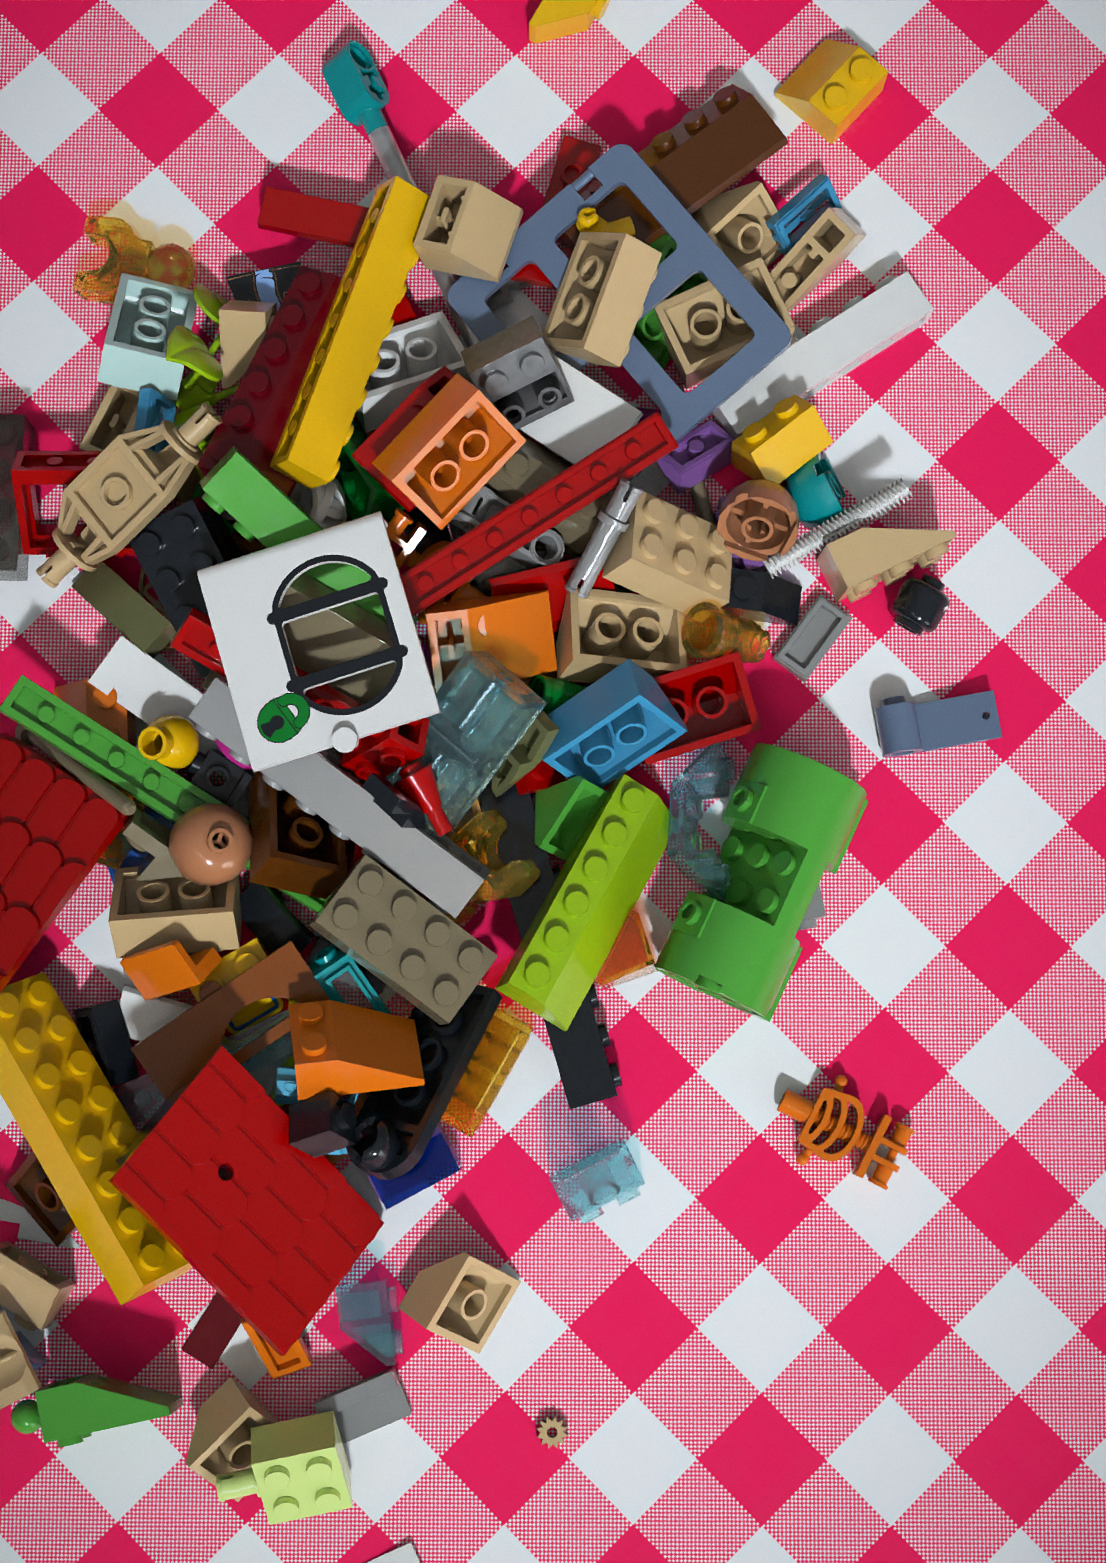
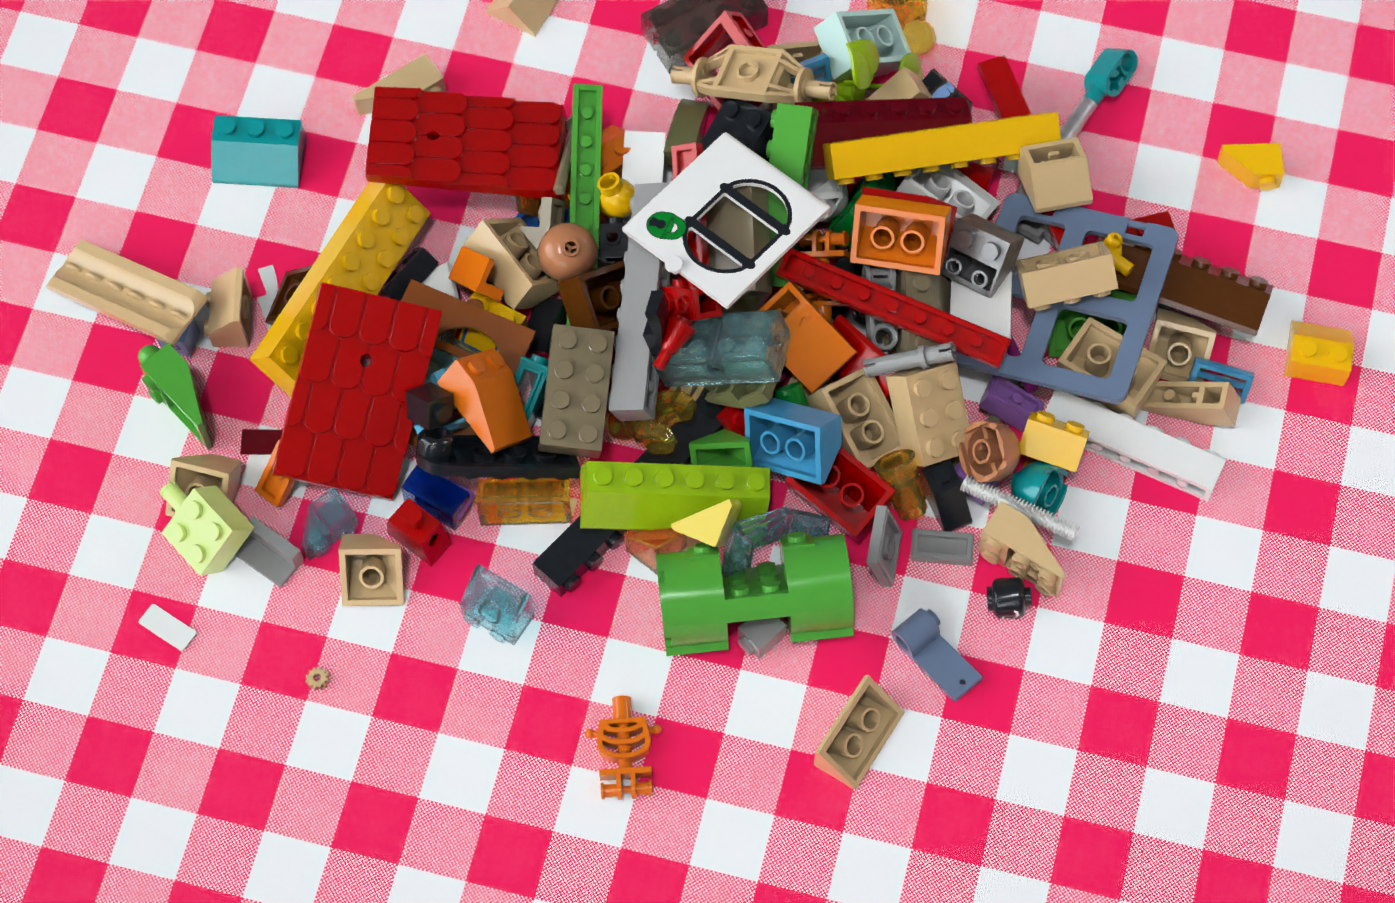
camera: 60 degrees right, 15 degrees down
(447, 1218) = (415, 528): none -> red torso
(665, 887) = (712, 524): none -> light yellow slope
(786, 702) = (884, 546): none -> light grey tile
(977, 864) = (858, 733): none -> tan slope

